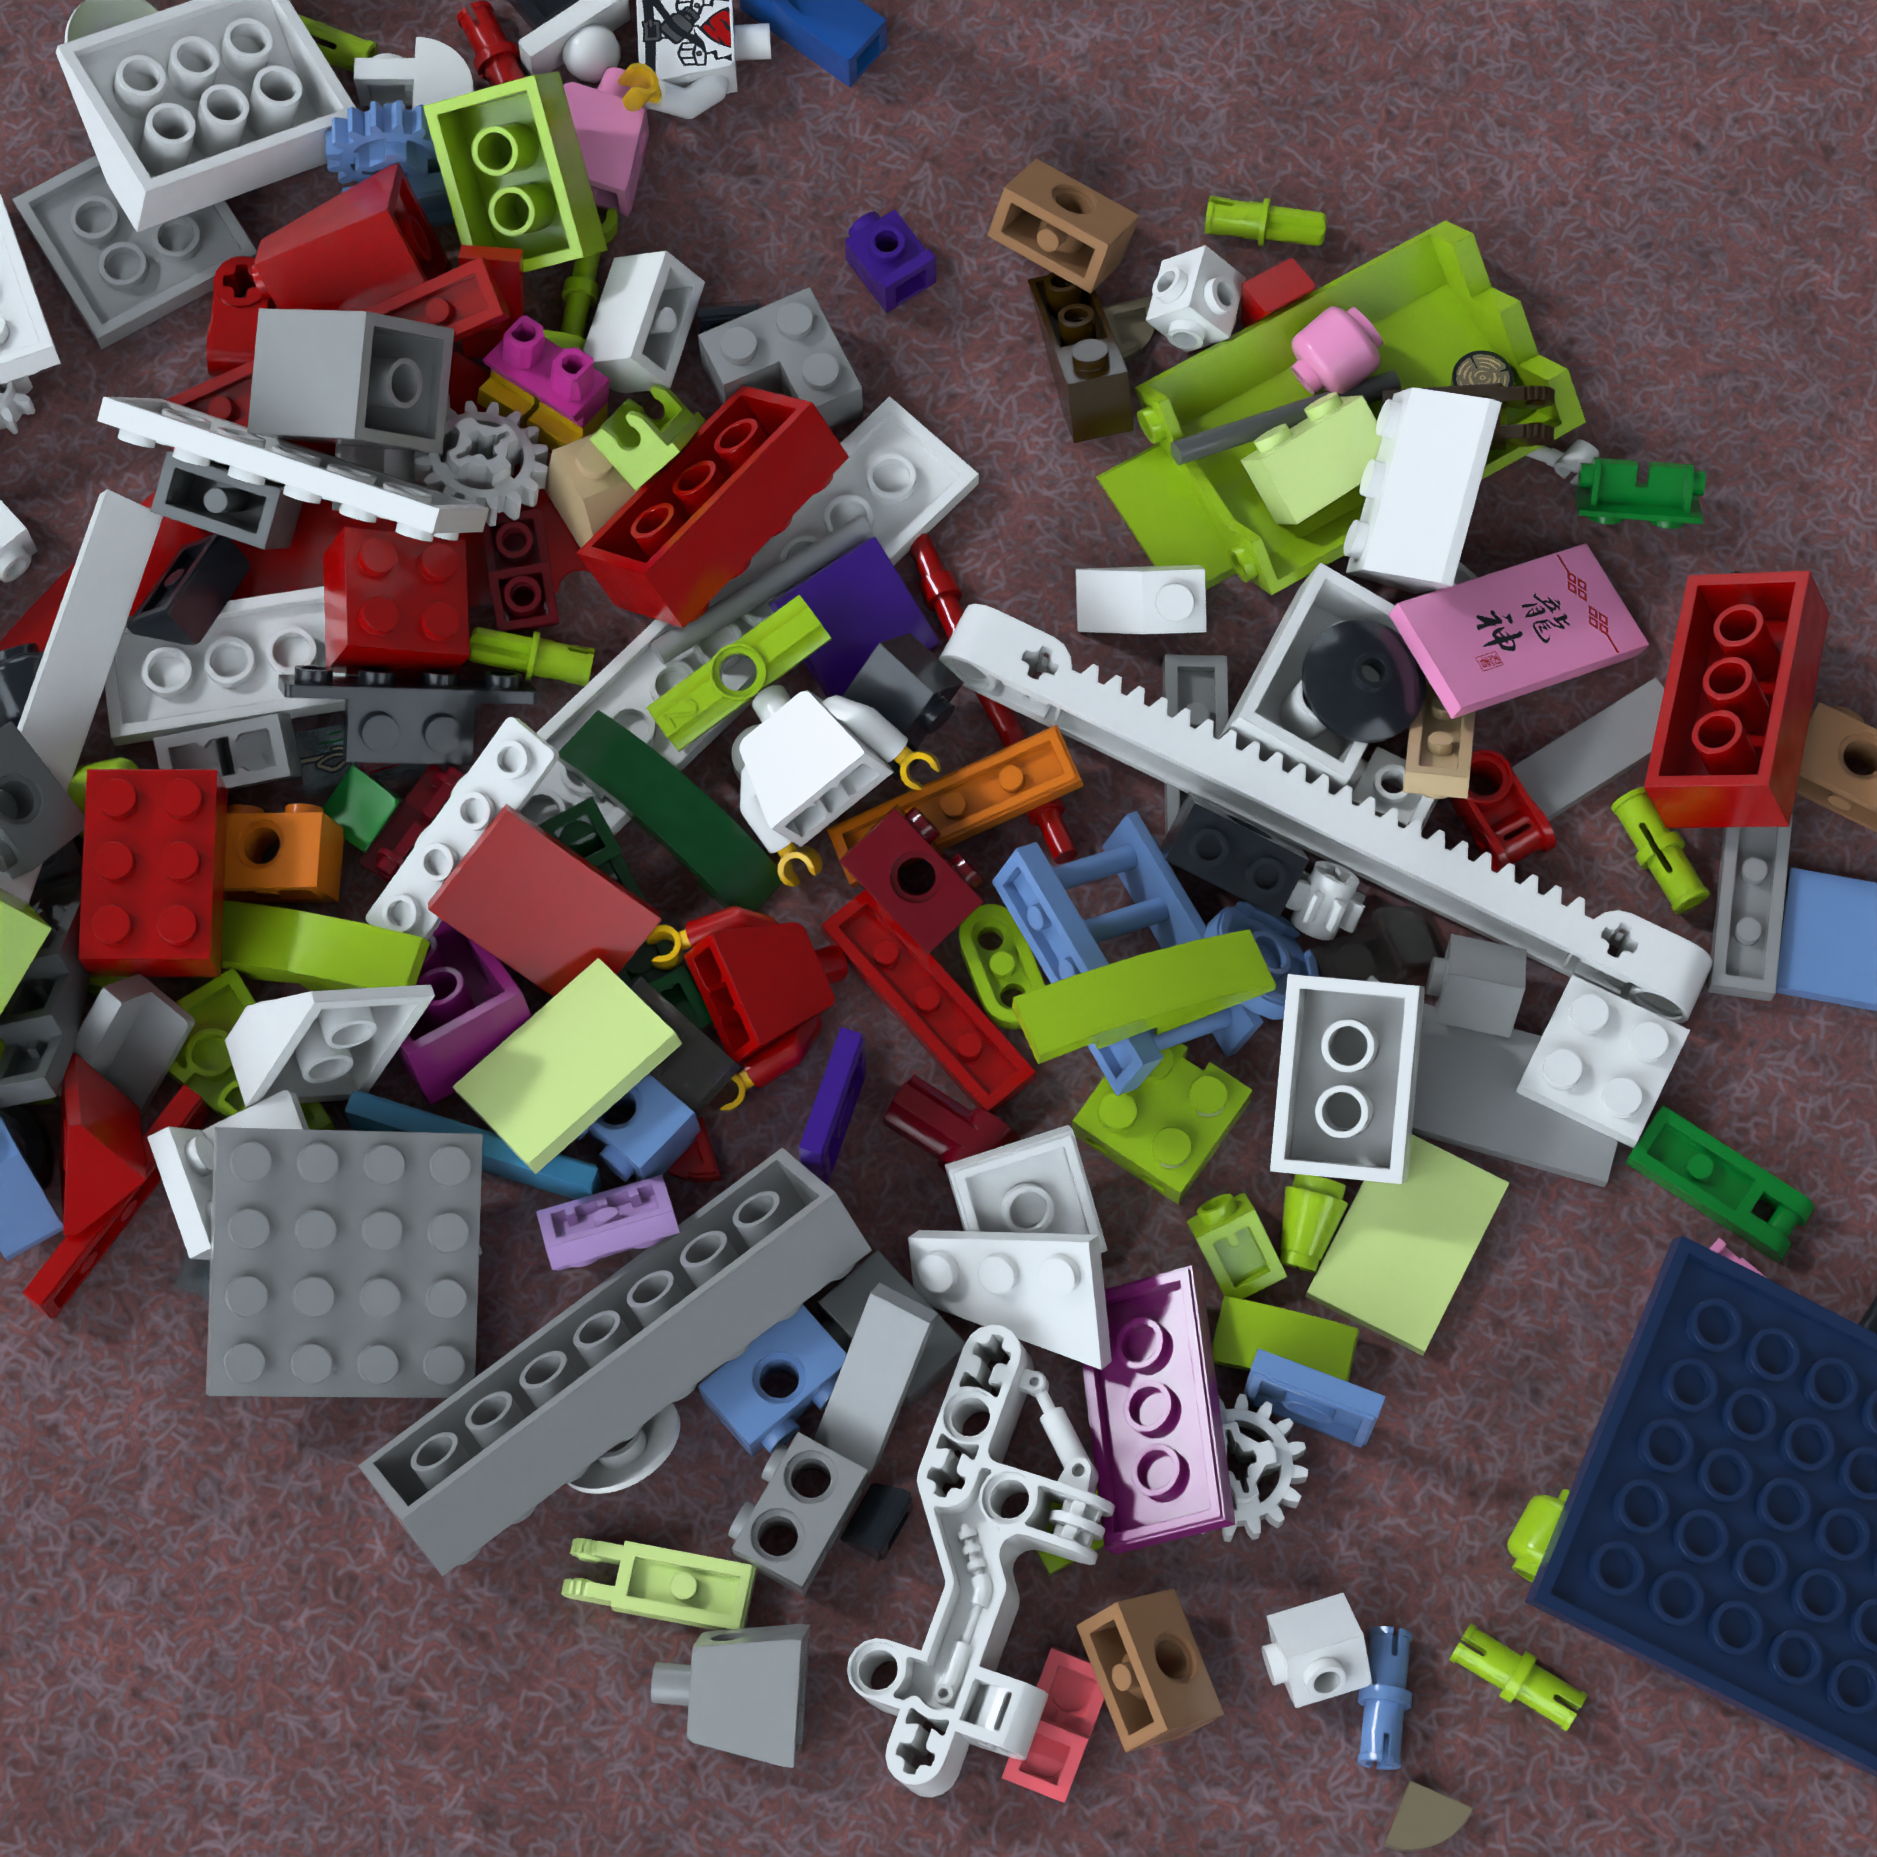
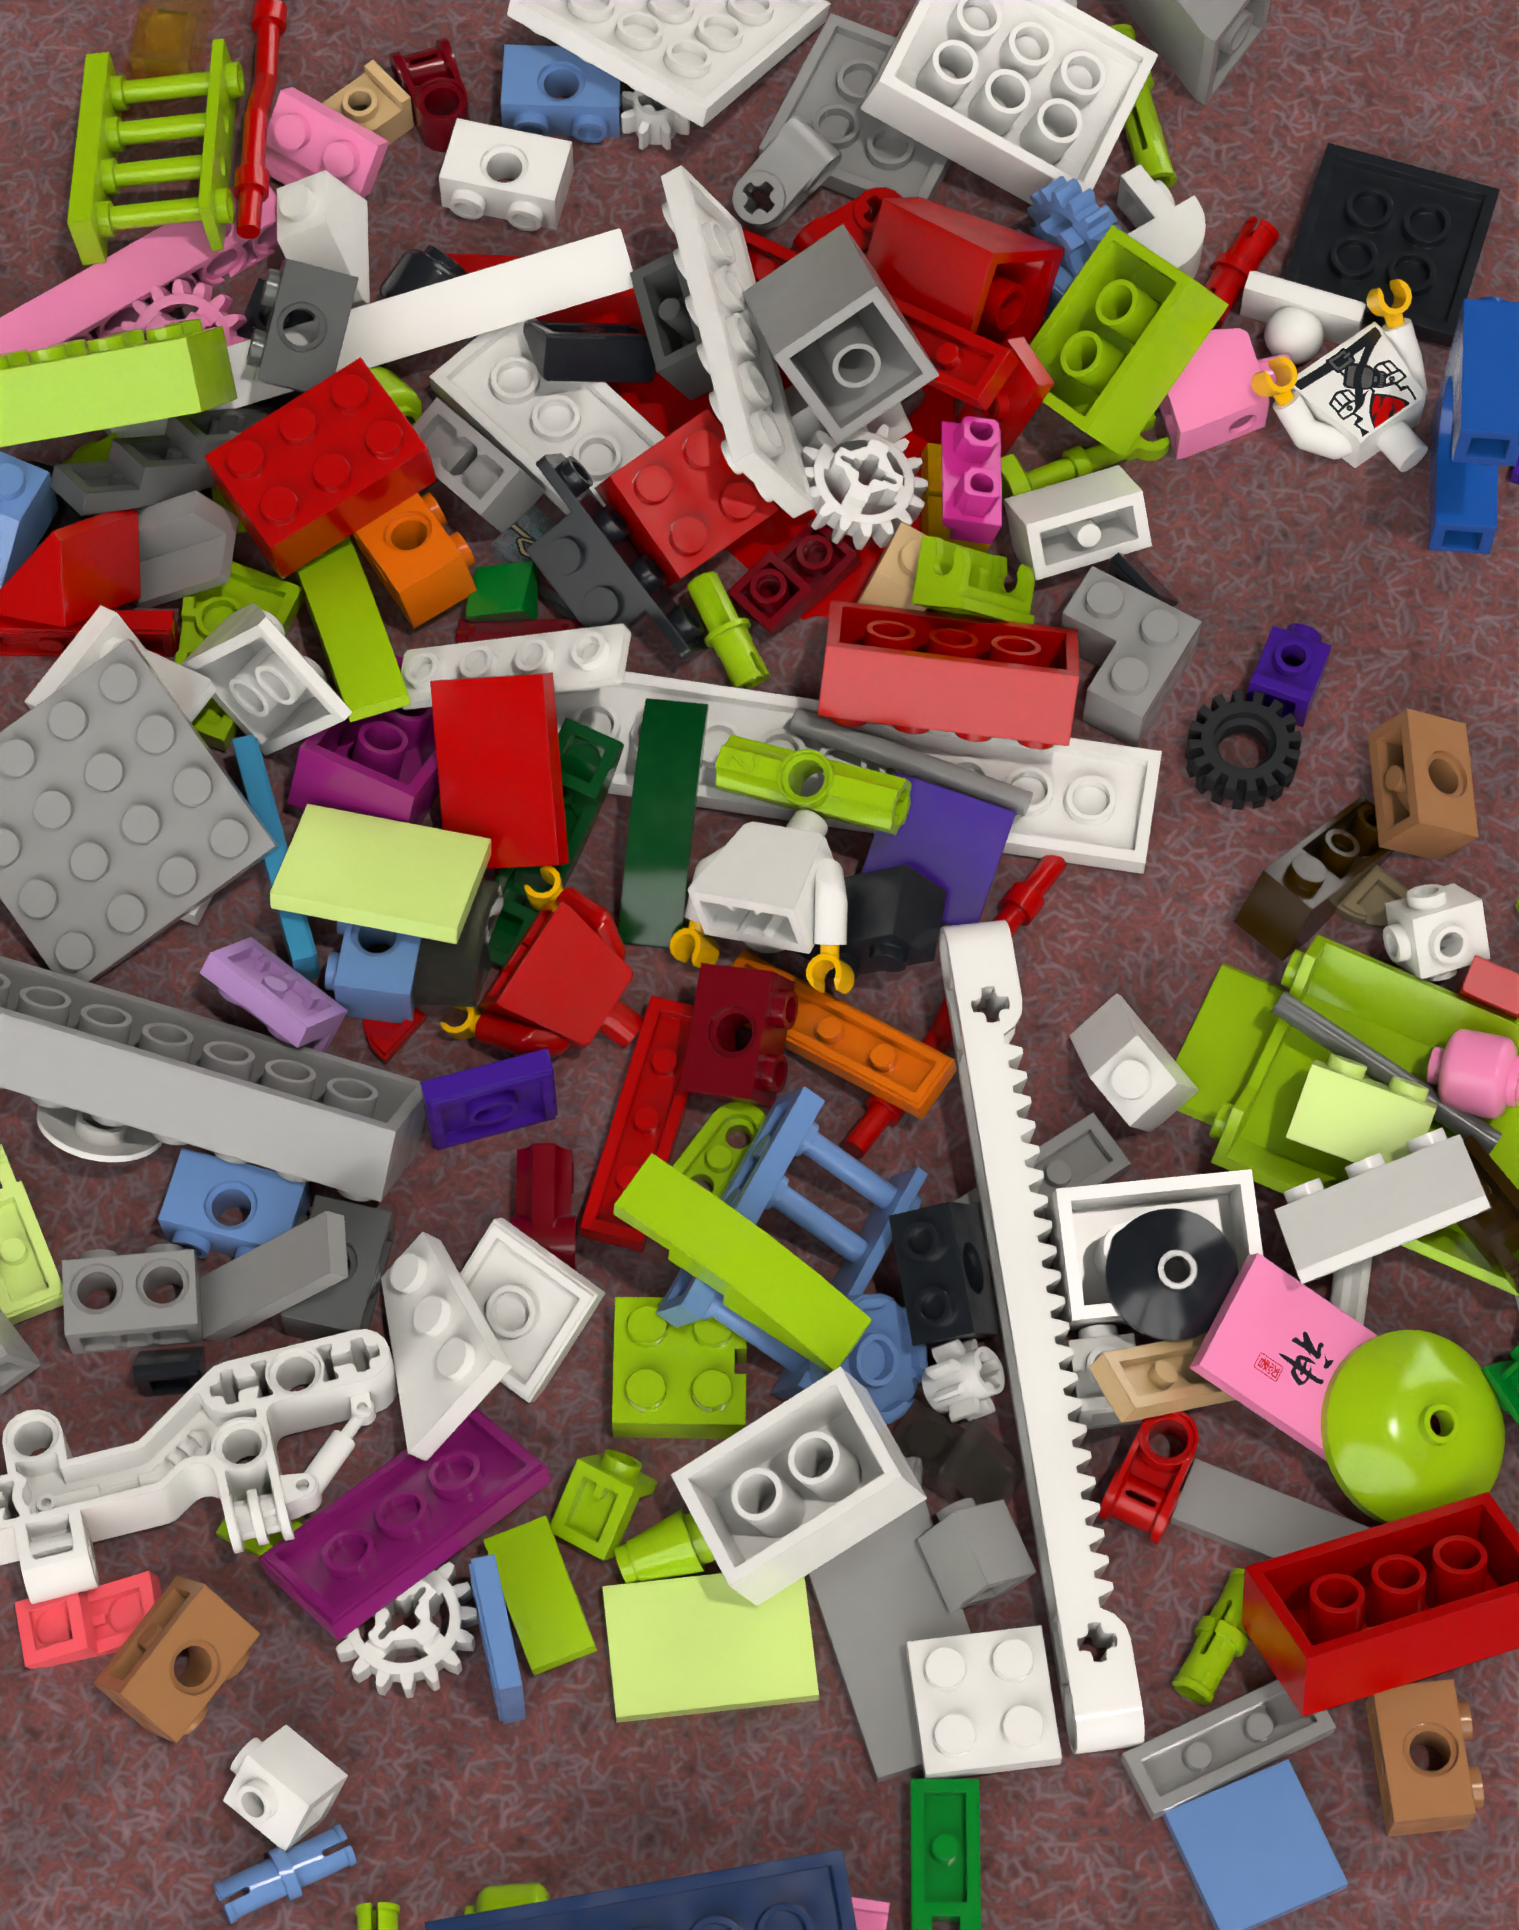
camera: 55 degrees right, 5 degrees down
(142, 320) = (792, 164): none -> light grey piece
(927, 305) = (1250, 718): none -> black tyre
(1593, 597) = (1381, 1430): none -> lime dish

